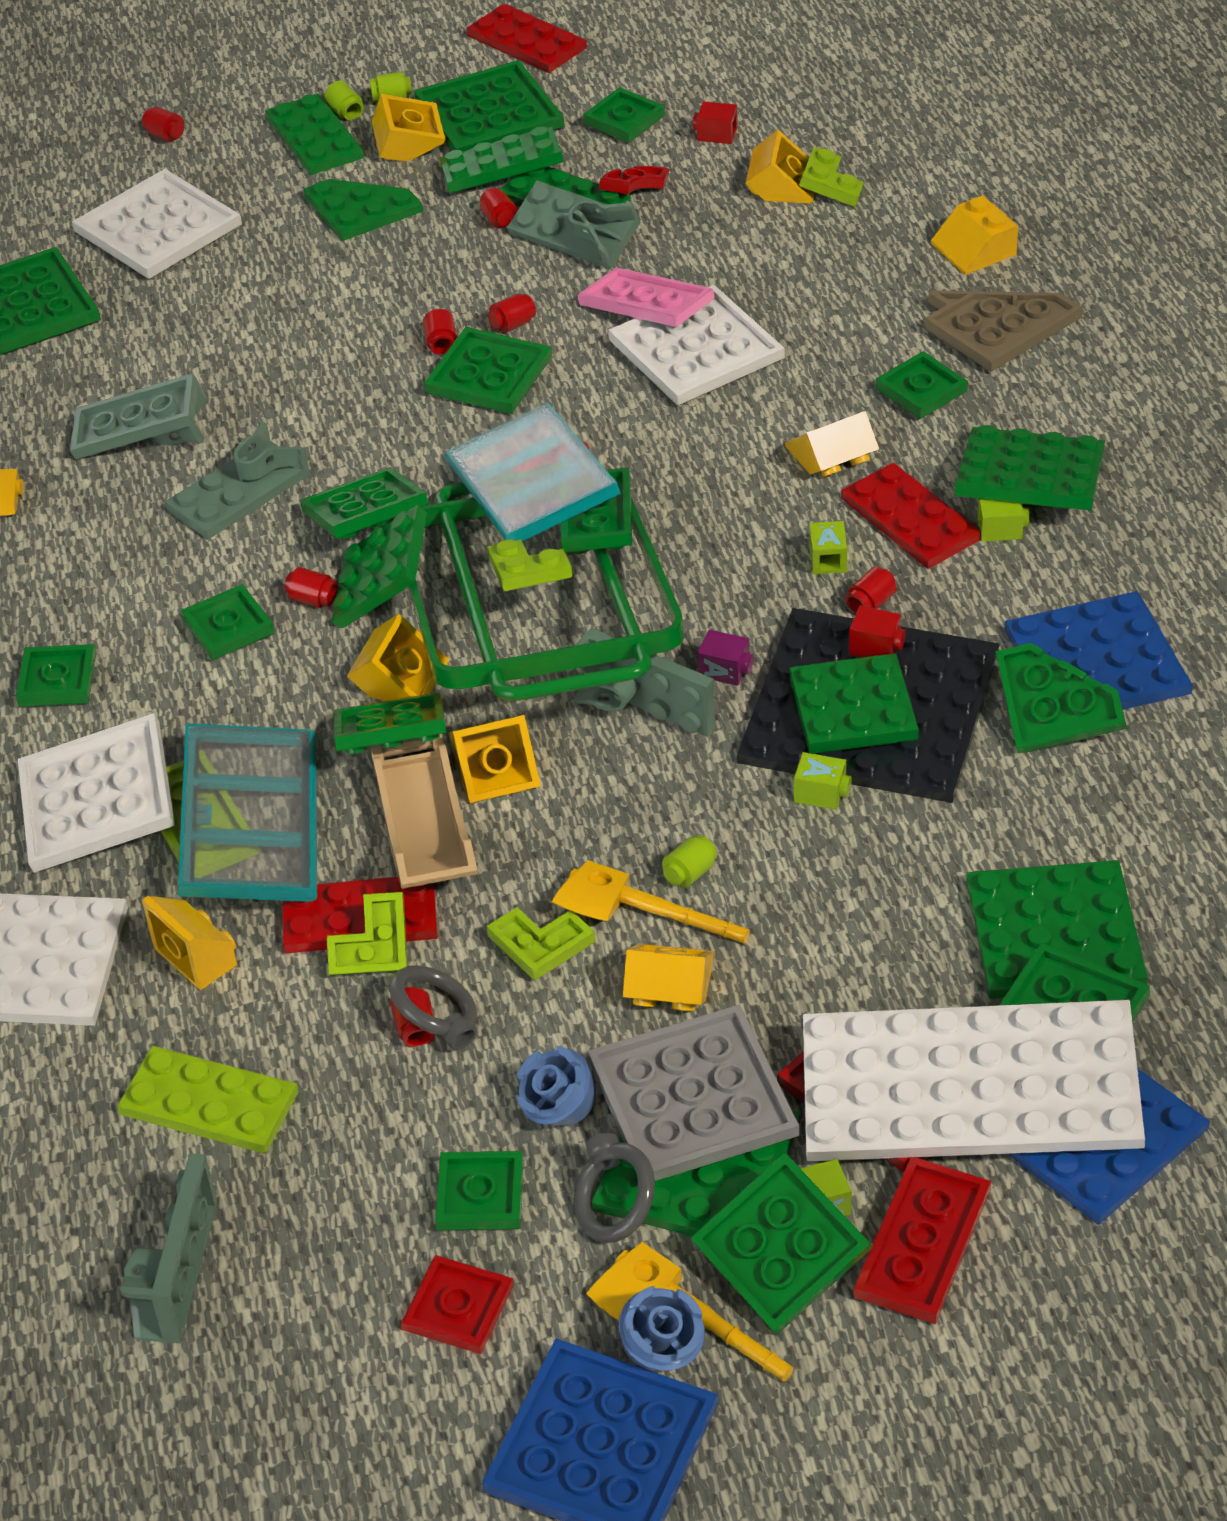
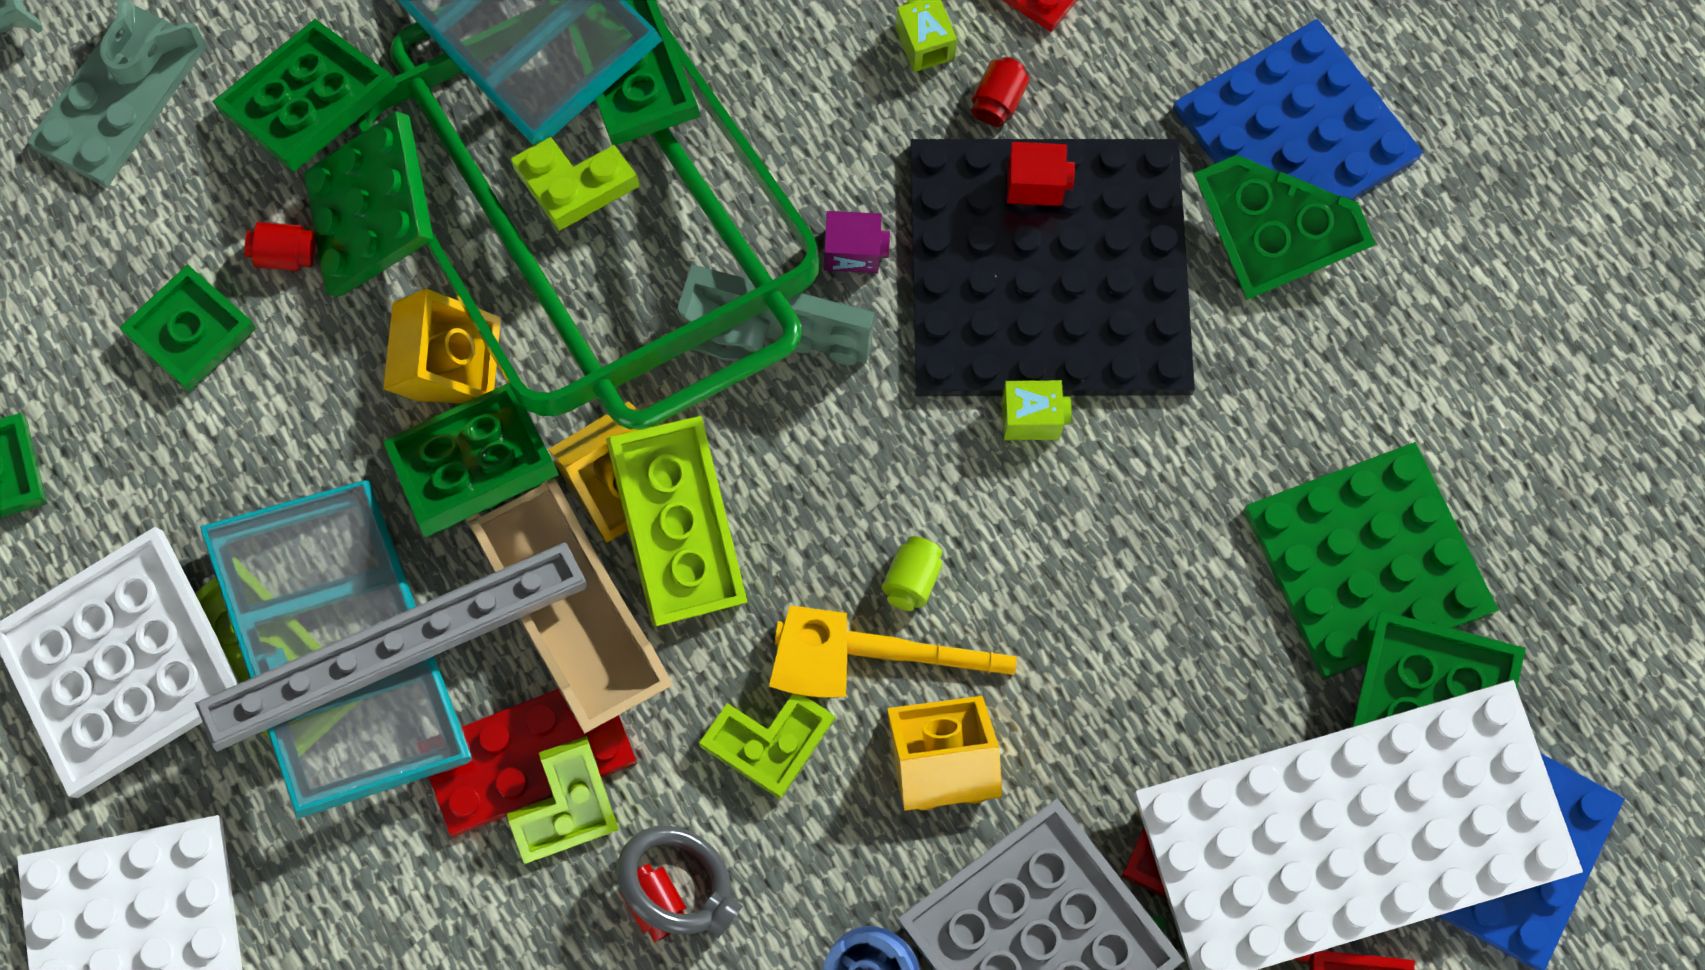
camera: 25 degrees left, 25 degrees up
(189, 940) = (332, 866): yellow slope -> none
(288, 810) = (389, 646): none -> light grey tile
(522, 786) = (676, 520): none -> lime plate
(853, 703) = (1039, 284): green plate -> none

